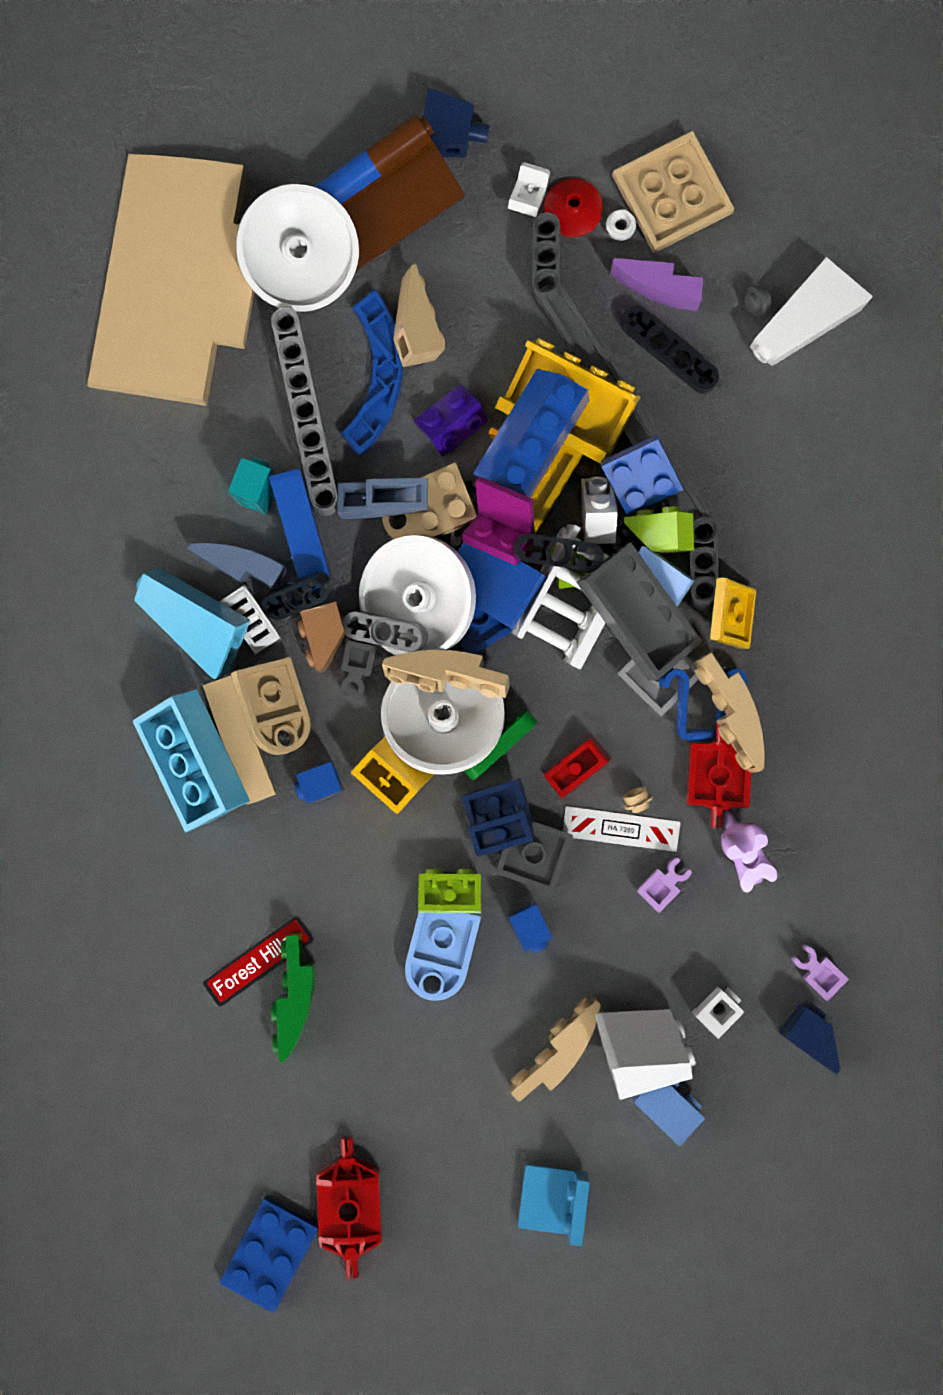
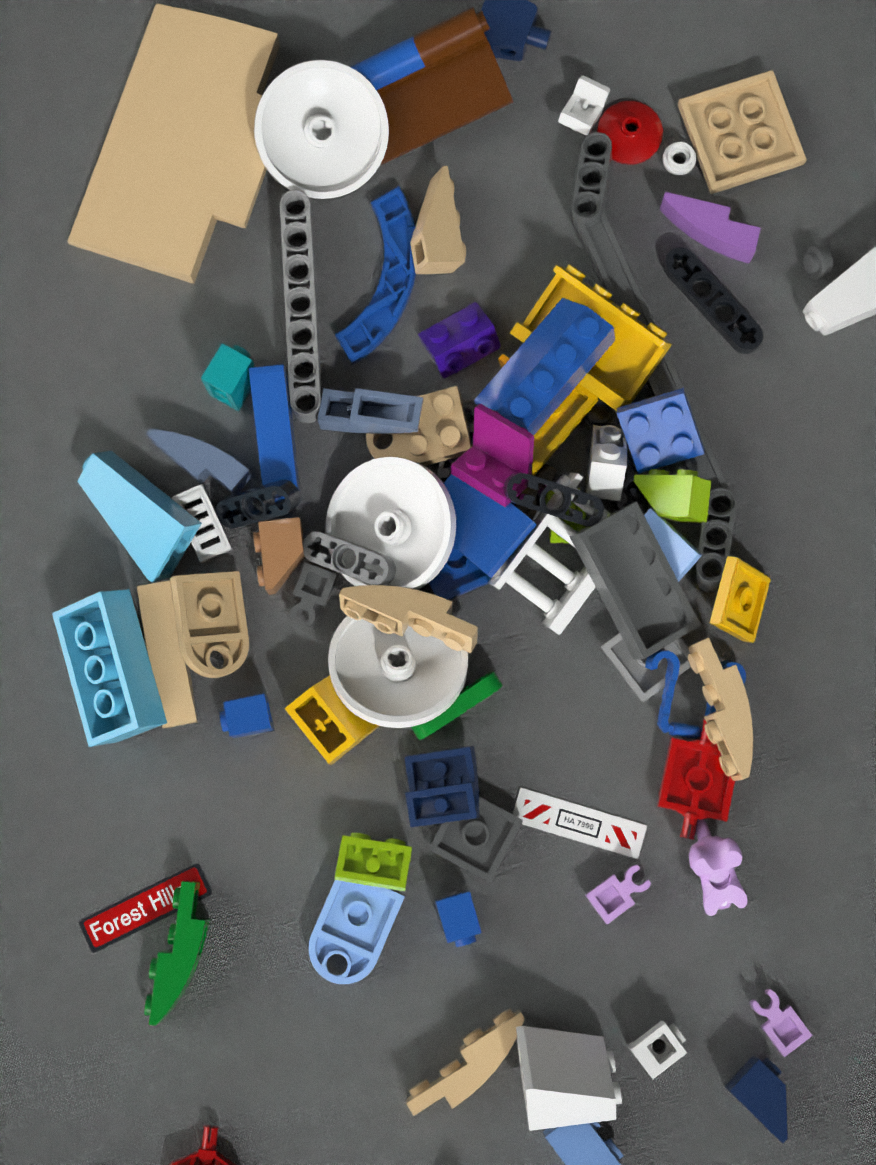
camera: 10 degrees right, 5 degrees down
(577, 766) = (539, 744): red slope -> none
(637, 799) = (602, 792): tan plate -> none

